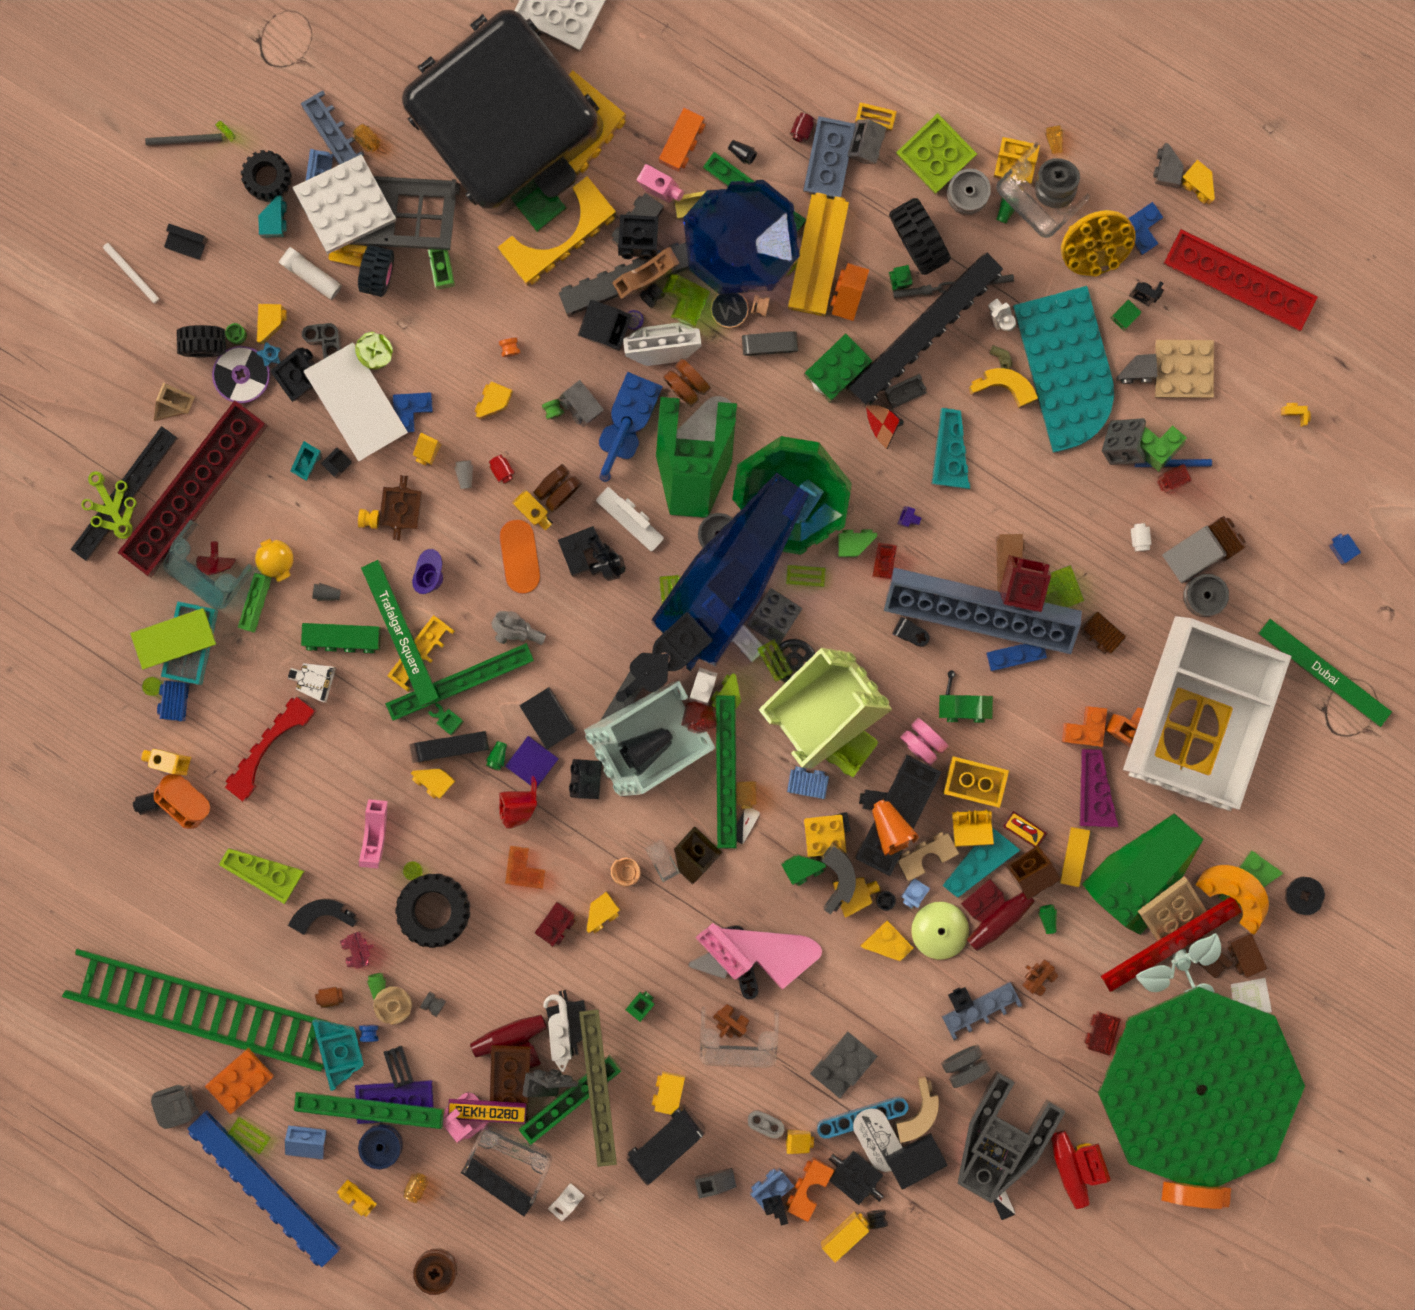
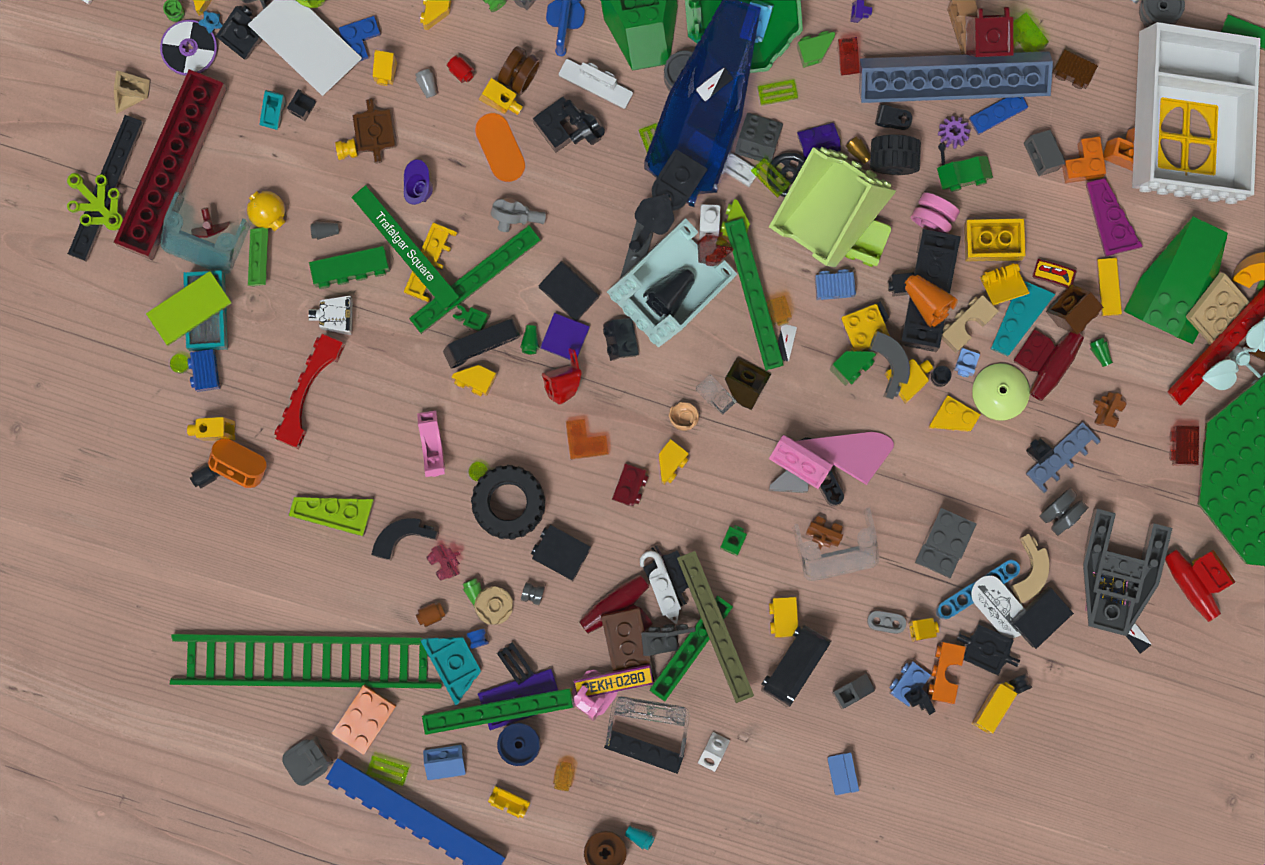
camera: 15 degrees left, 5 degrees down
(201, 341) = (142, 23): black tyre -> none
(470, 972) = (560, 552): none -> black panel
(473, 1265) = (640, 837): none -> teal cone
(683, 1257) = (843, 774): none -> medium blue panel
(743, 556) = (714, 84): none -> sticker
(833, 635) = (818, 137): none -> dark purple bracket
(868, 654) = (858, 149): none -> pearl gold cone
(901, 673) = (895, 154): none -> black wheel
(961, 667) = (949, 136): none -> medium lavender gear
(1049, 708) = (1044, 153): none -> dark grey brick

